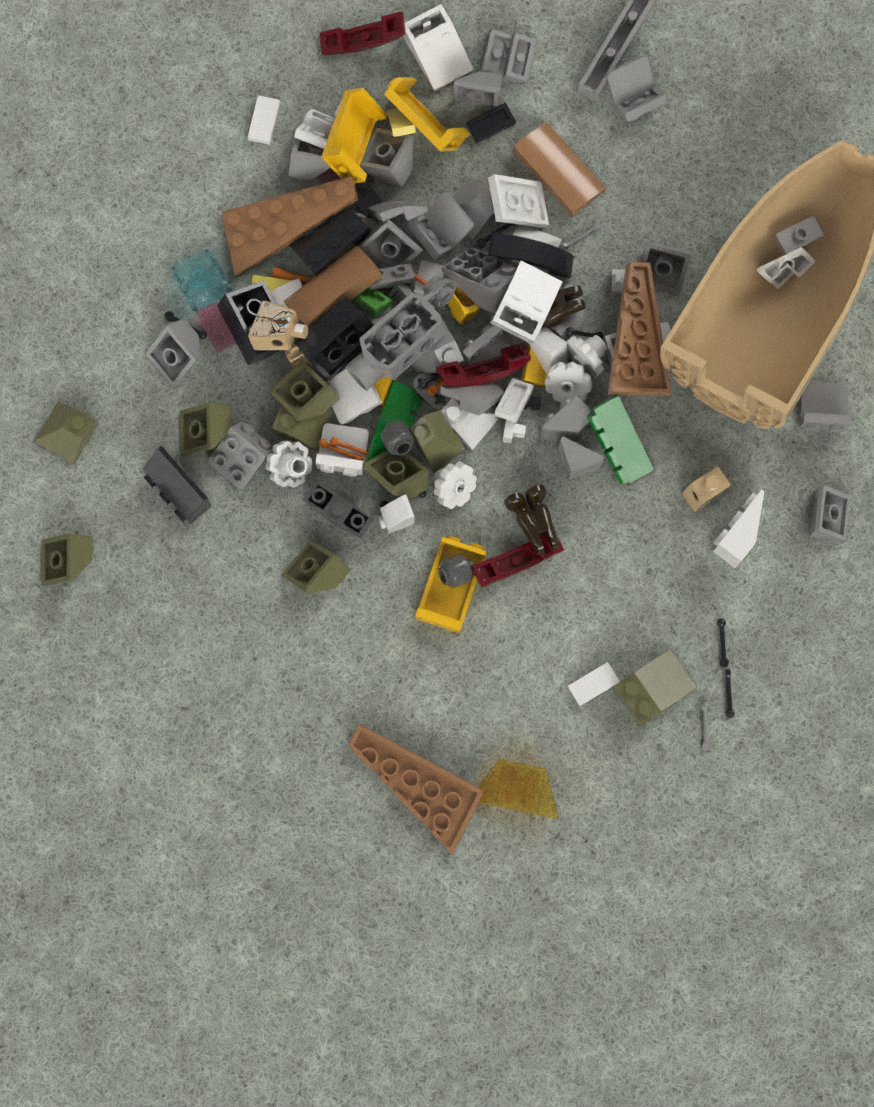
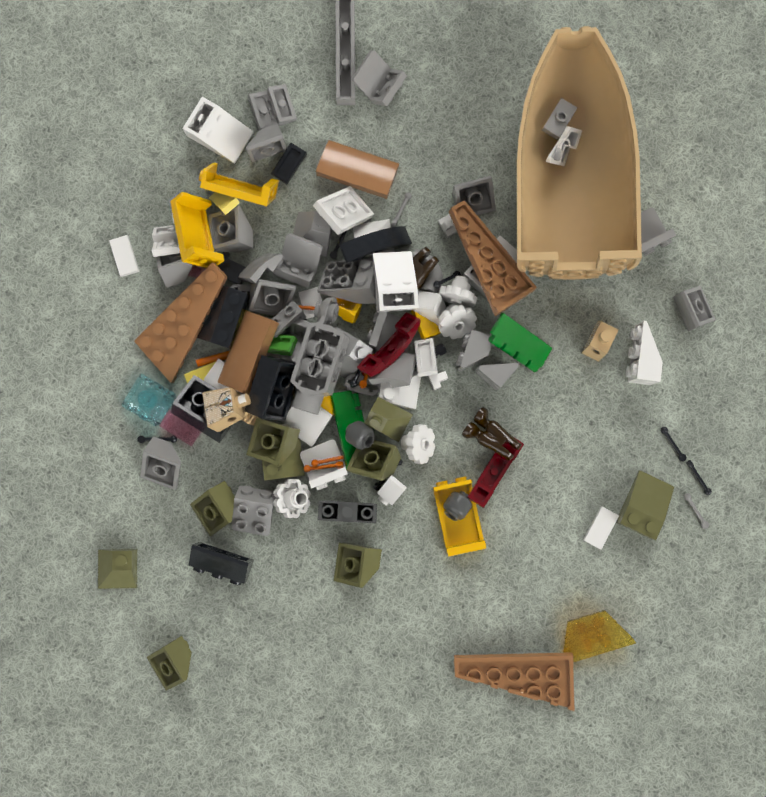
camera: 25 degrees left, 5 degrees up
(363, 37) = (160, 153): dark red slope -> none

